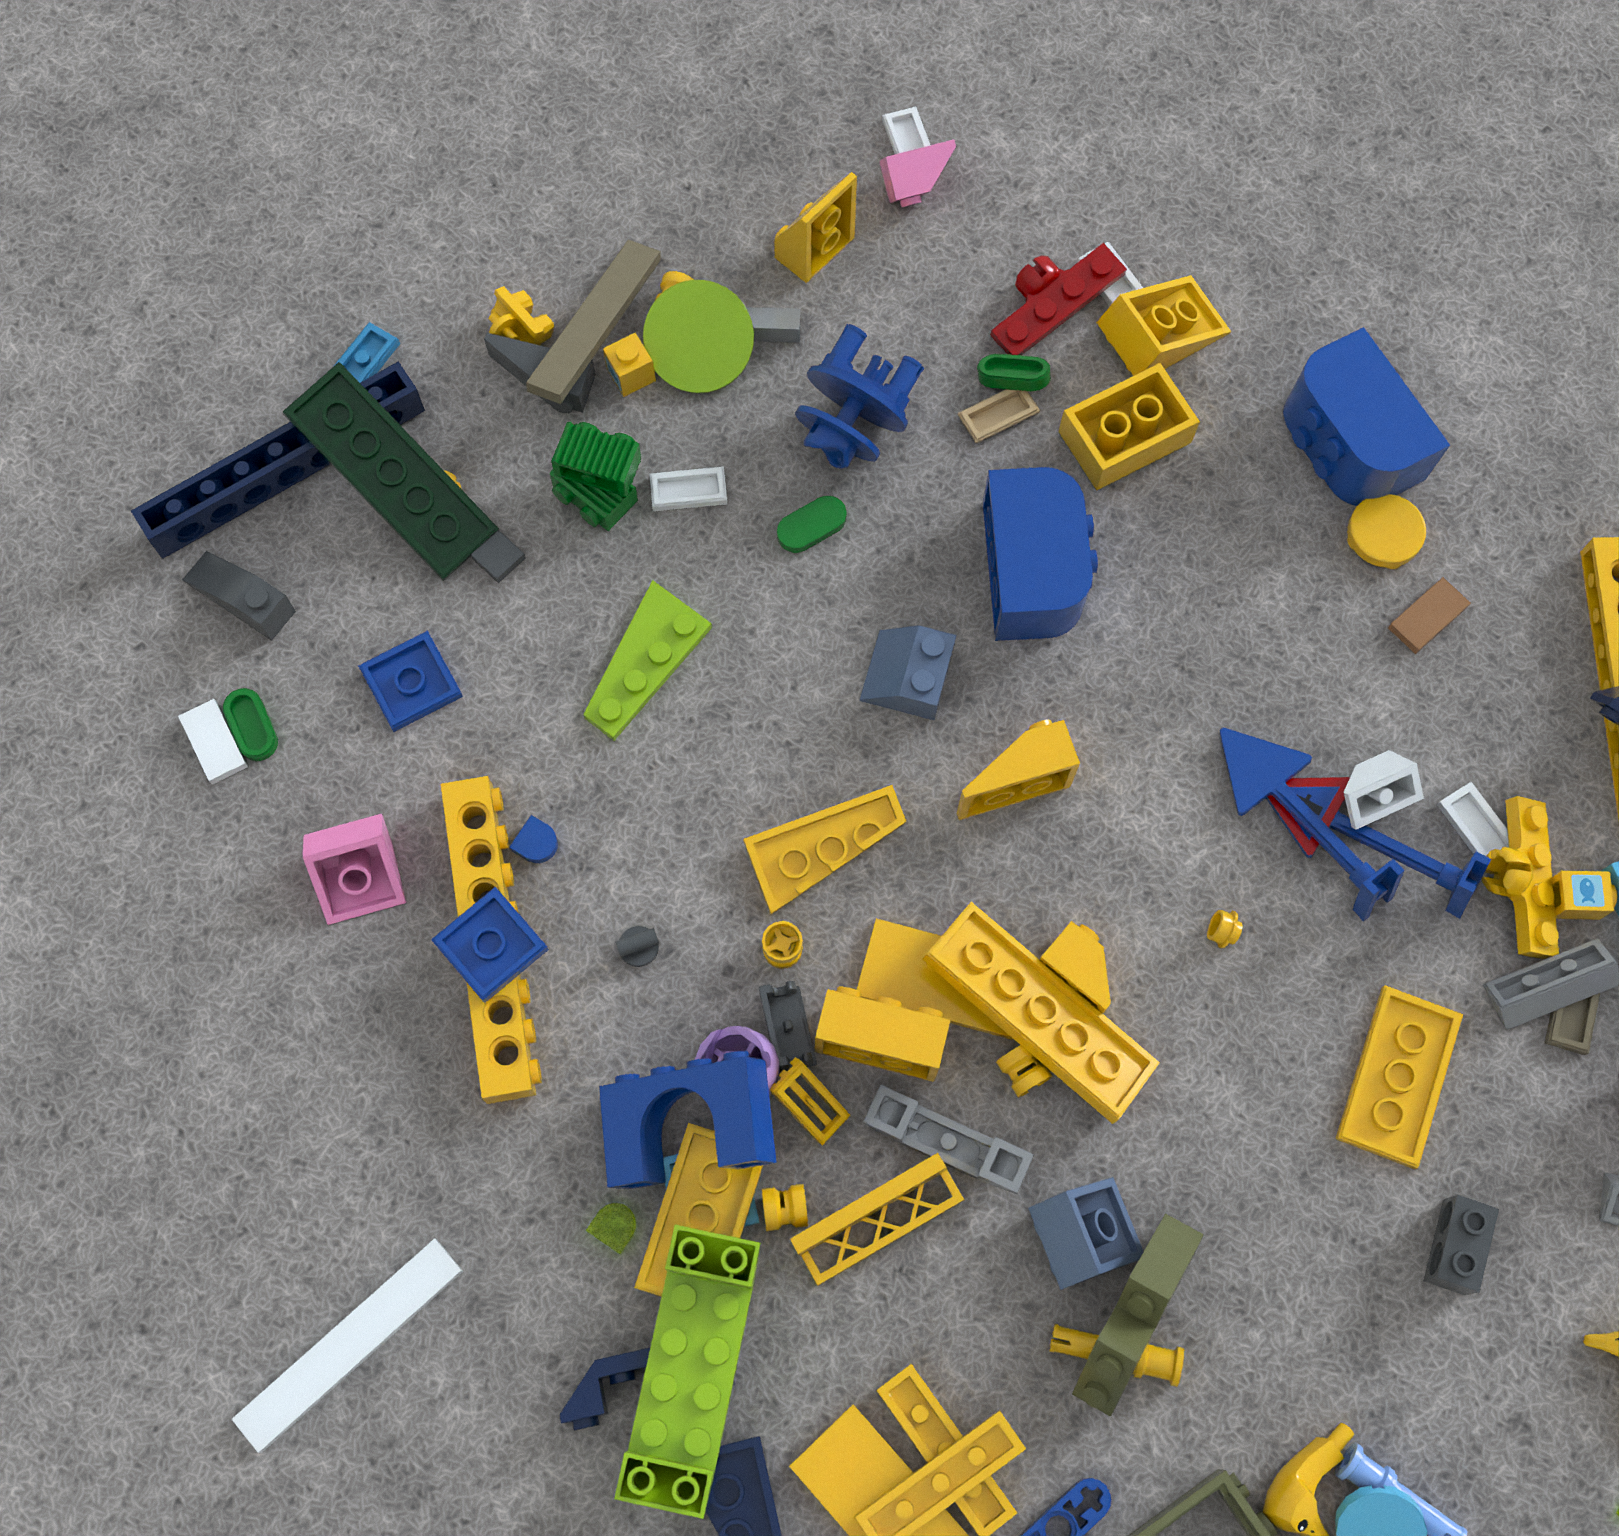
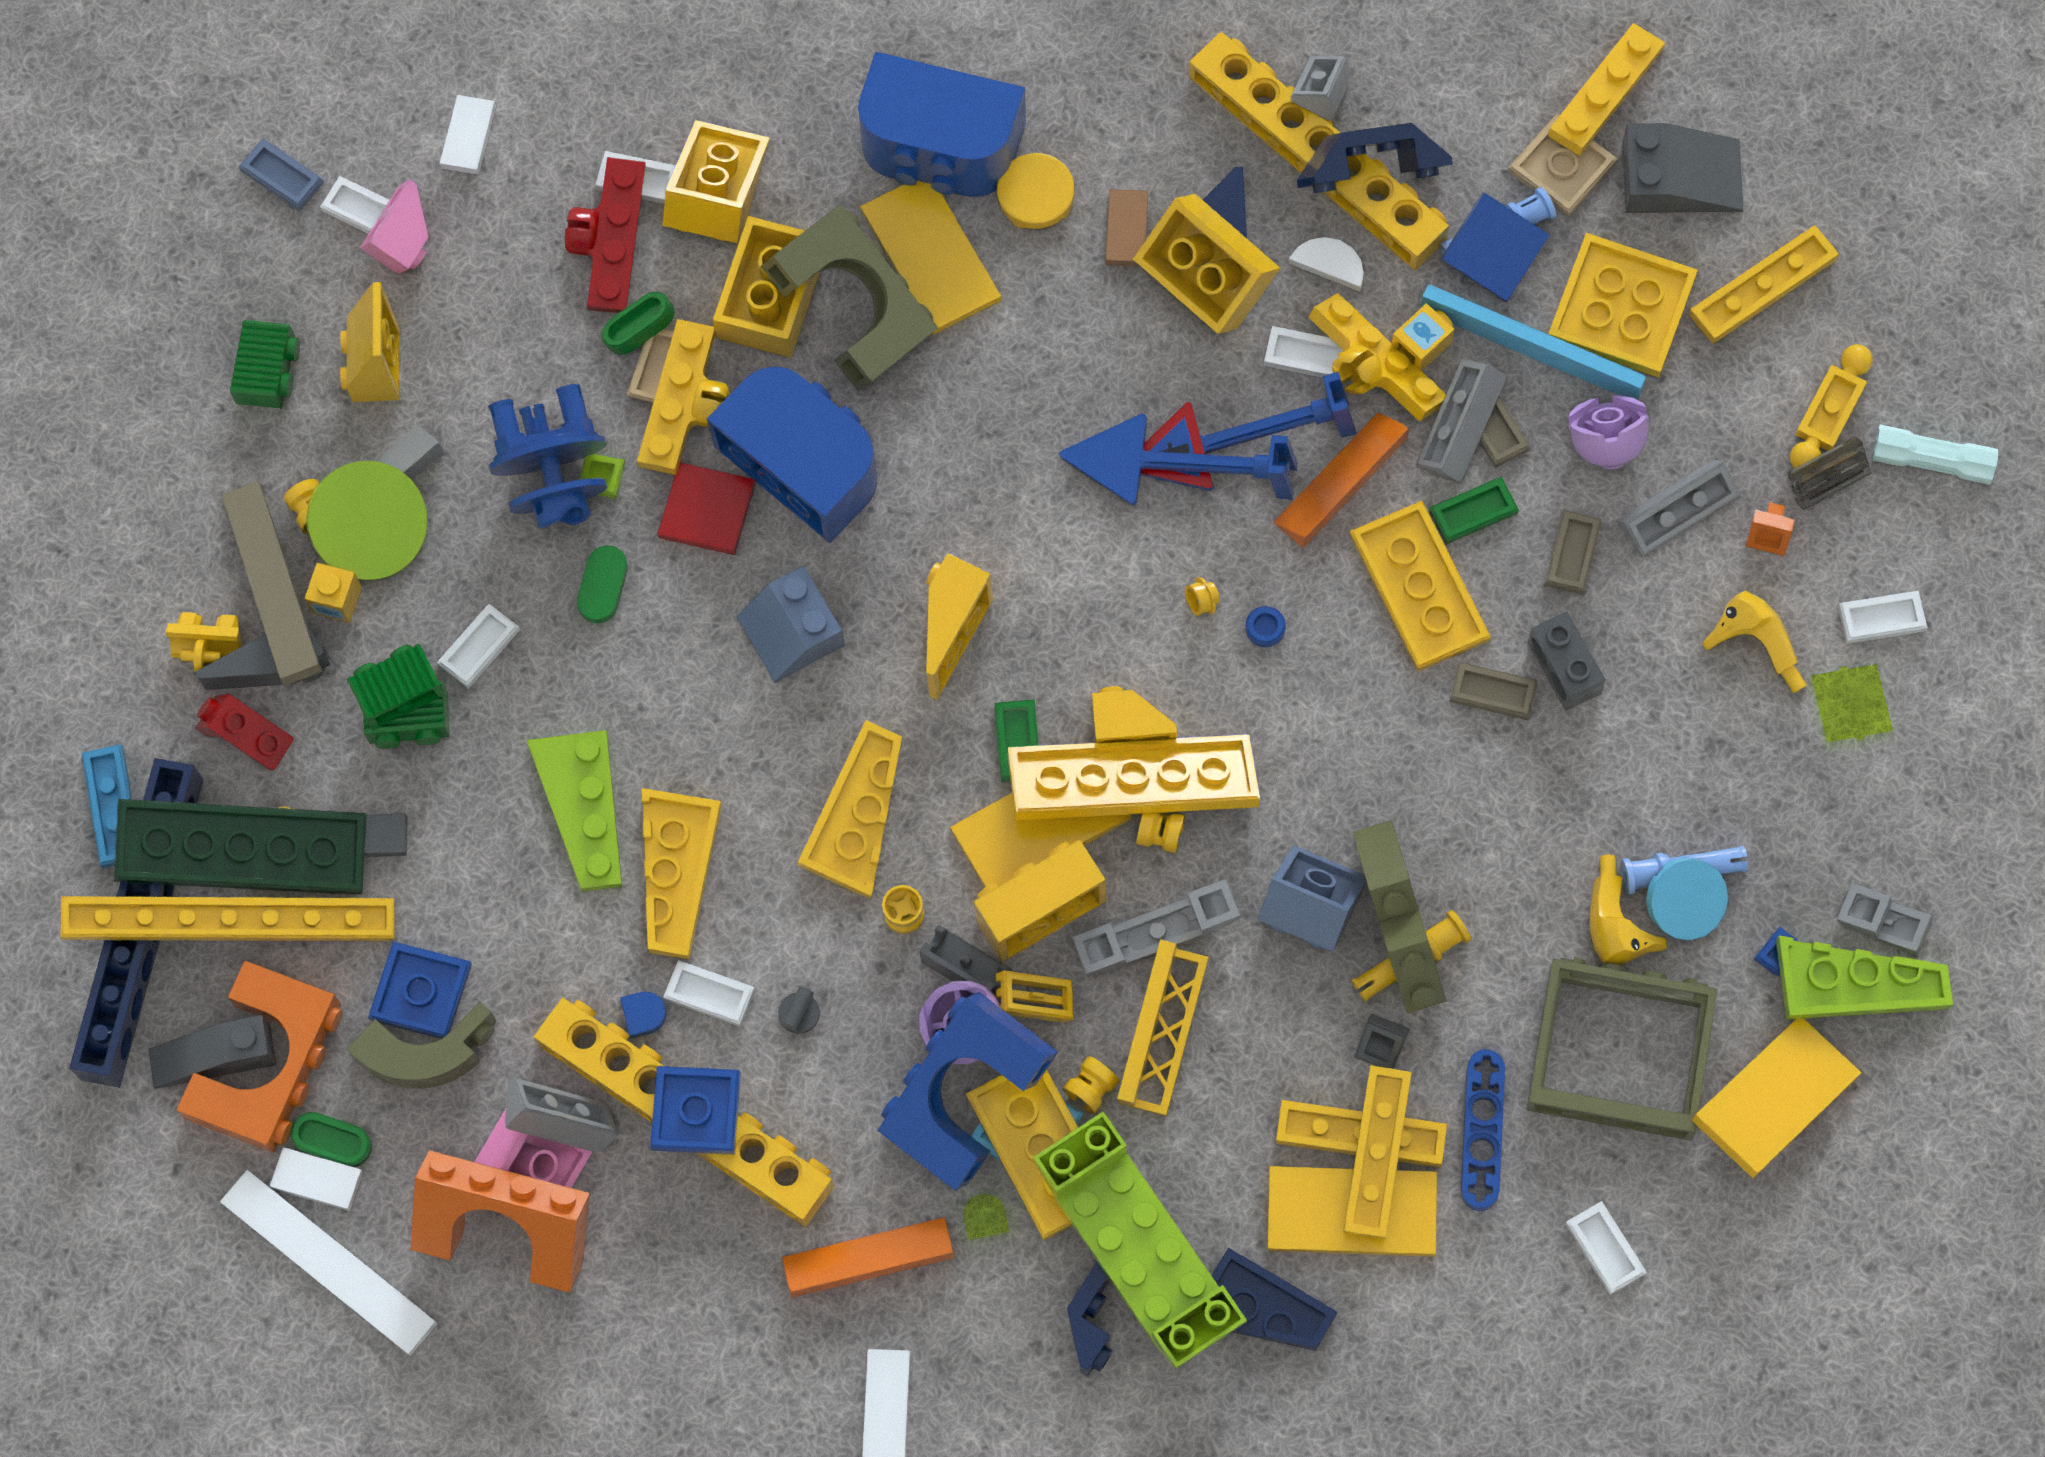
camera: 40 degrees left, 0 degrees up
(160, 807) = (328, 1262): none -> white tile
(312, 926) = (546, 1211): none -> orange arch
(315, 628) = (263, 1113): none -> orange arch
(332, 510) = (226, 918): none -> yellow tile
(340, 708) = (425, 1064): none -> olive arch
(397, 854) = (559, 1116): none -> light grey slope
(481, 403) = (243, 729): none -> red bracket
(505, 1170) = (868, 1257): none -> orange slope
(593, 871) = (709, 993): none -> white tile
(670, 755) = (678, 853): none -> yellow wing
(741, 180) = (264, 364): none -> green brick
(879, 75) = (281, 174): none -> sand blue tile
(892, 452) = (606, 468): none -> lime tile
(934, 538) = (706, 508): none -> red tile
(991, 445) = (682, 397): none -> yellow plate
(993, 893) = (1015, 728): none -> green tile
(1027, 153) = (467, 134): none -> white tile
(1032, 1395) = (1381, 1042): none -> dark grey slope
(1205, 436) = (842, 245): none -> olive arch
(1251, 994) = (1265, 626): none -> blue tile
(1266, 509) = (931, 253): none -> yellow tile
(1380, 1211) = (1493, 691): none -> dark tan tile
(1381, 788) = (1215, 390): white slope -> none
(1416, 940) = (1342, 478): none -> orange slope
(1465, 691) = (1206, 263): none -> yellow brick
(1497, 1059) = (1474, 510): none -> green tile
(1515, 667) = (1229, 200): none -> dark blue slope
(1546, 1165) = (1573, 552): none -> dark tan tile
(1562, 774) = (1330, 260): none -> white tile

